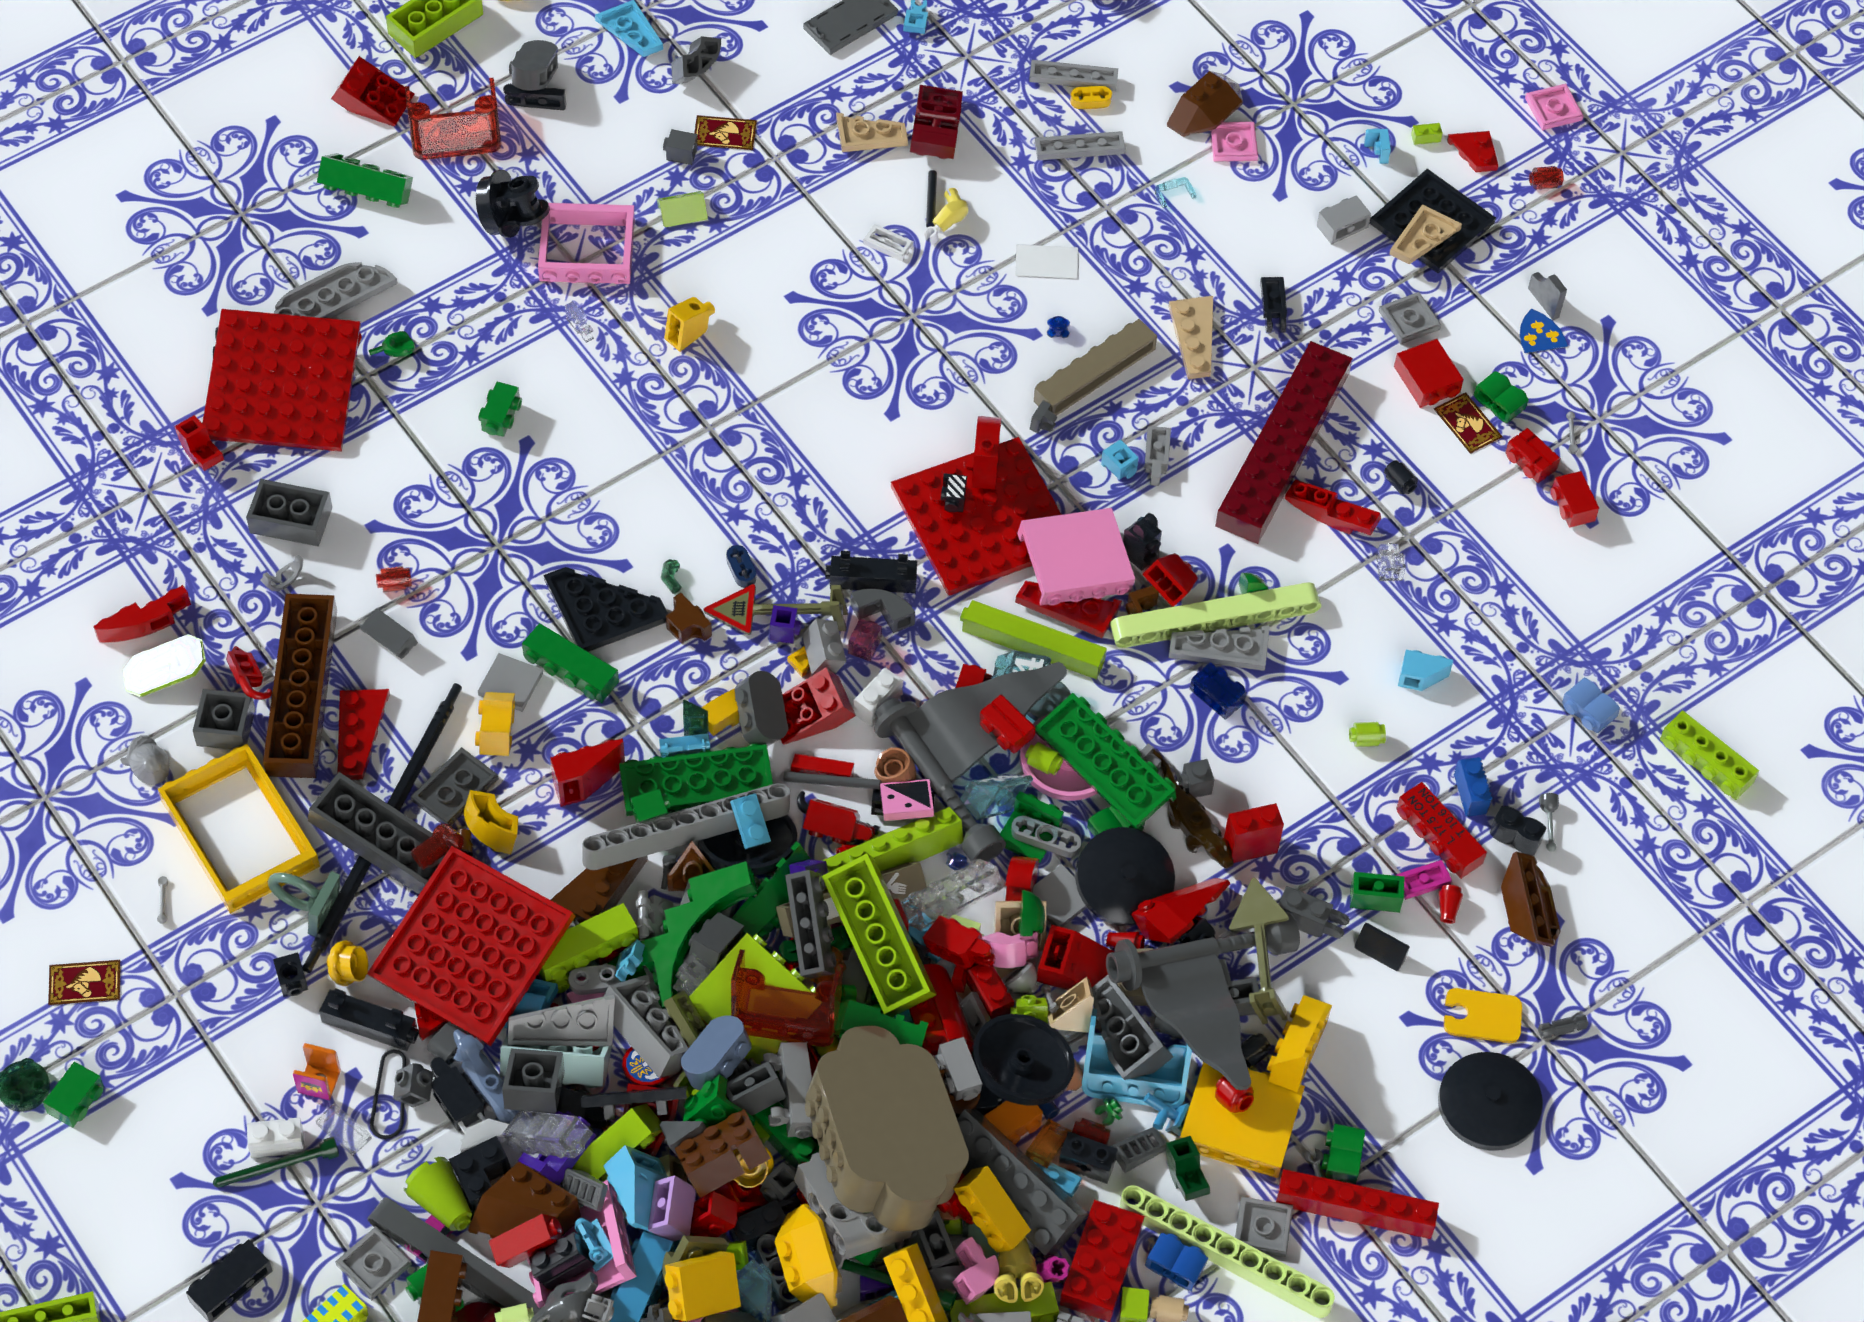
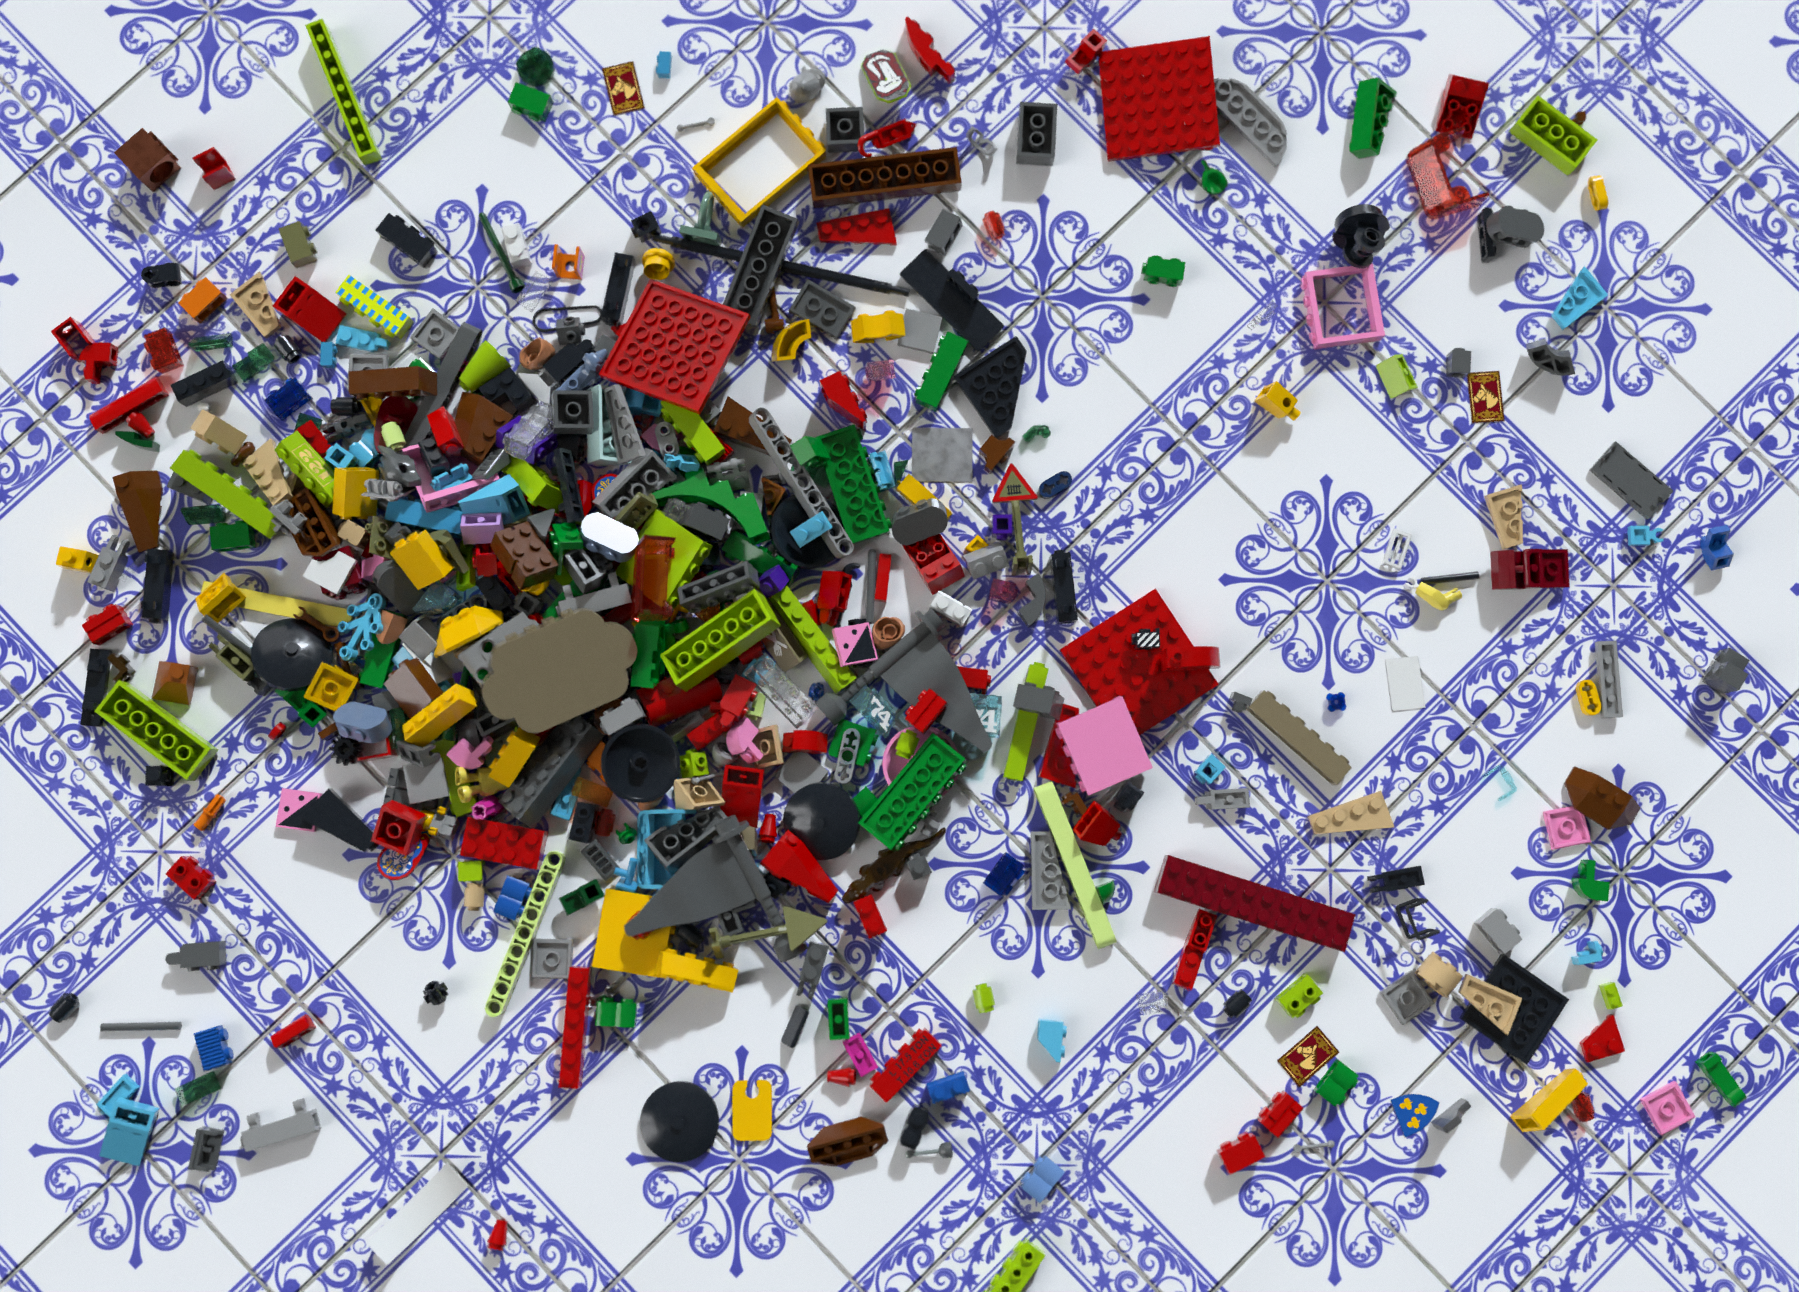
camera: 80 degrees right, 25 degrees up
(68, 923) = (664, 62): none -> dark azure piece
(435, 1131) = (536, 354): none -> nougat hair
(437, 846) = (754, 307): clear red piece -> none
(475, 638) = (952, 299): none -> black bracket
(554, 726) = (880, 370): none -> clear pink brick
(673, 677) = (942, 454): none -> flat silver sticker
(1012, 609) = (1042, 701): none -> dark grey brick
(1031, 914) = (767, 753): green brick -> none
(1079, 145) = (1531, 694): light grey plate -> none
(1301, 132) = (1586, 885): none -> green brick
(1340, 267) = (1419, 901): none -> black piece
(1388, 277) = (1439, 975): none -> tan brick
(1397, 416) = (1299, 996): none -> lime brick
(1428, 373) = (1348, 1019): red brick -> none
(1525, 54) = (1721, 1079): none -> green leg
(1540, 204) = (1549, 1101): none -> yellow slope
(1563, 1026) = (750, 1174): dark grey axle -> none

